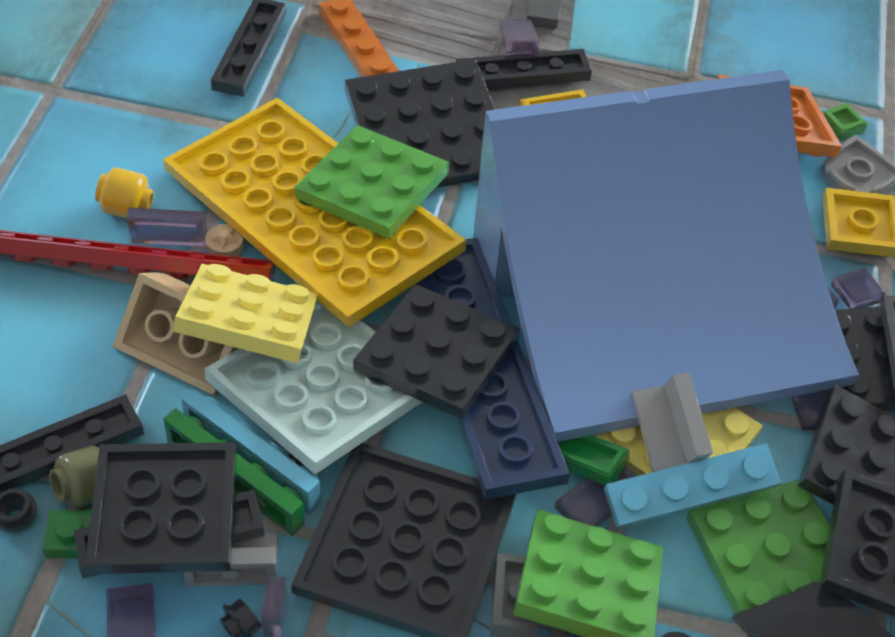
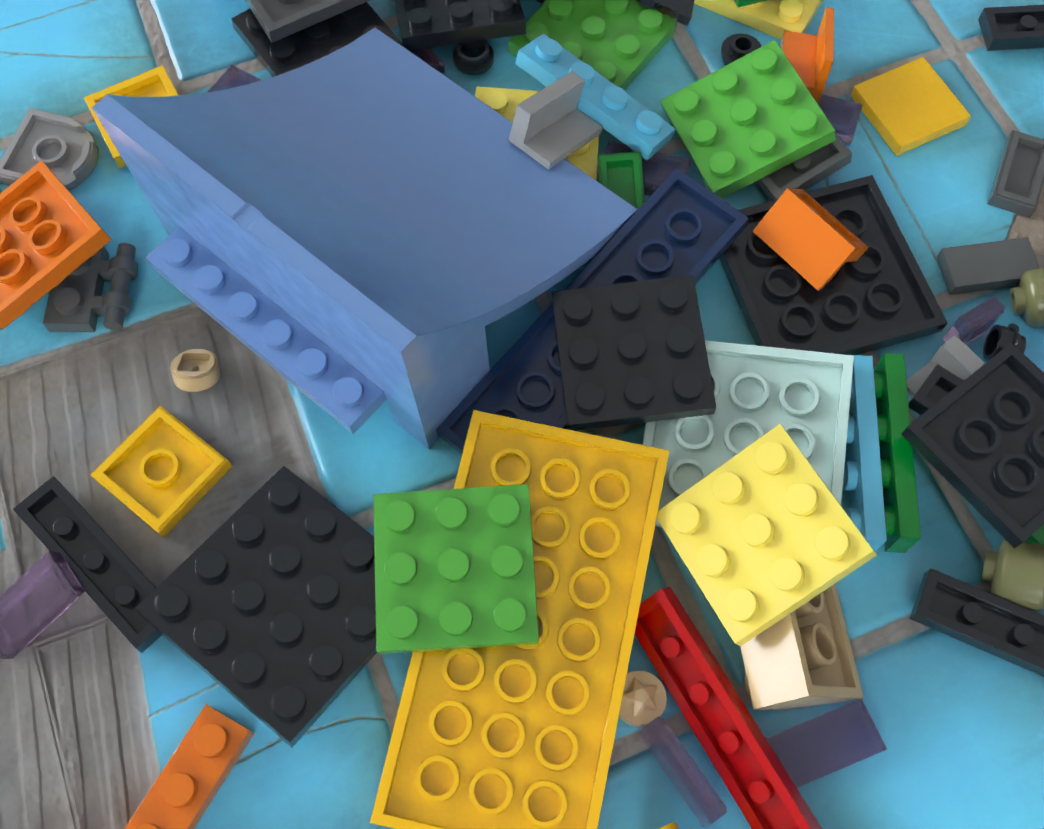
camera: 120 degrees left, 15 degrees up
(106, 309) = (827, 743): none -> clear purple tile
(440, 537) = (808, 237): none -> orange panel
(801, 439) = (473, 57): none -> black plate

